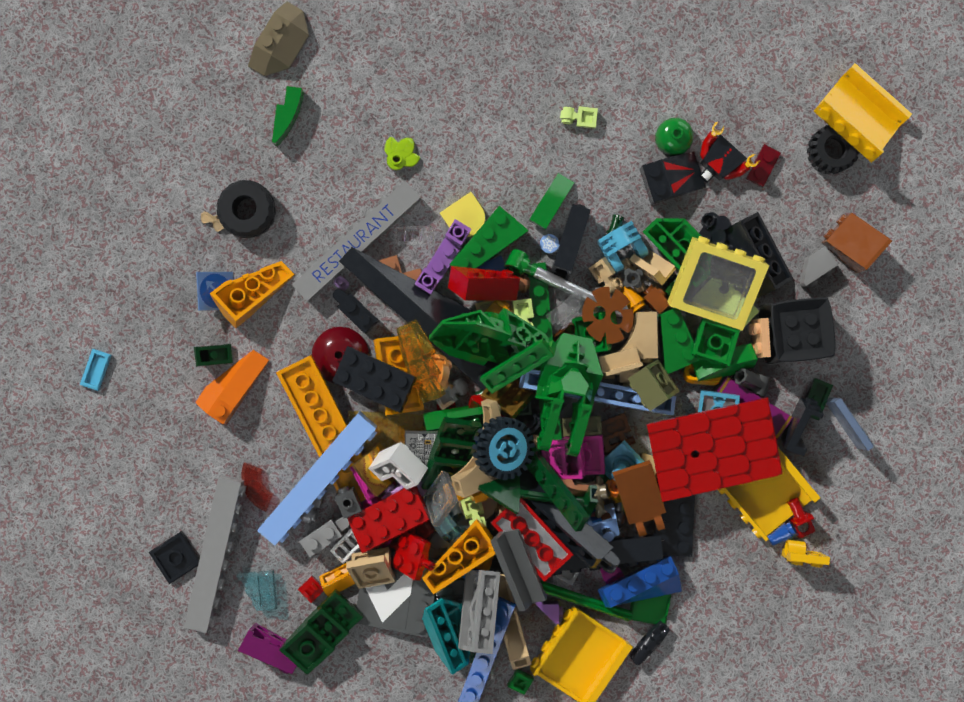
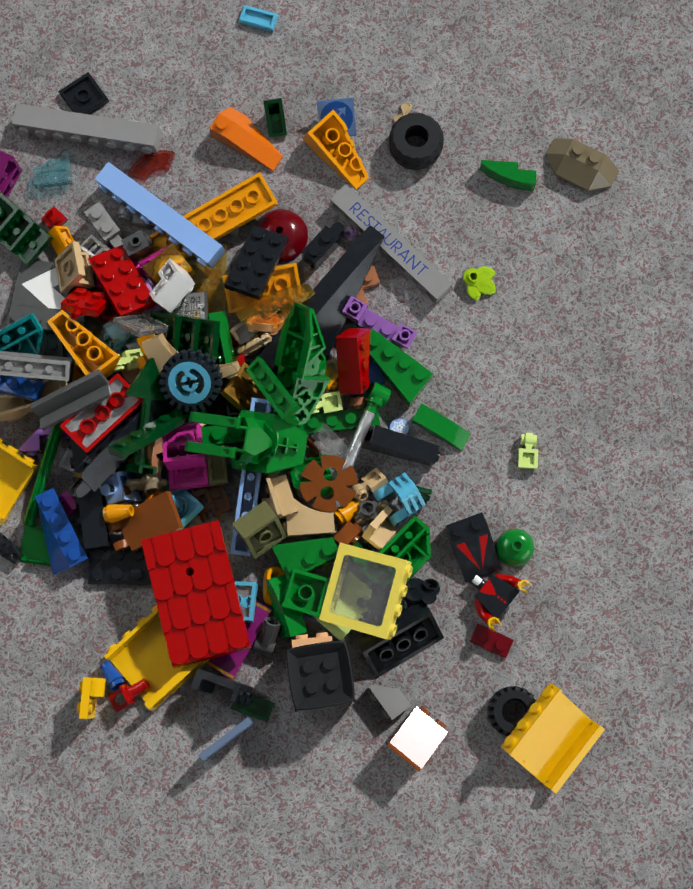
camera: 85 degrees right, 10 degrees down
(461, 384) = (255, 345): none -> tan axle
(467, 211) = (425, 345): light yellow tile -> none
(629, 525) = (117, 512): none -> light orange cone

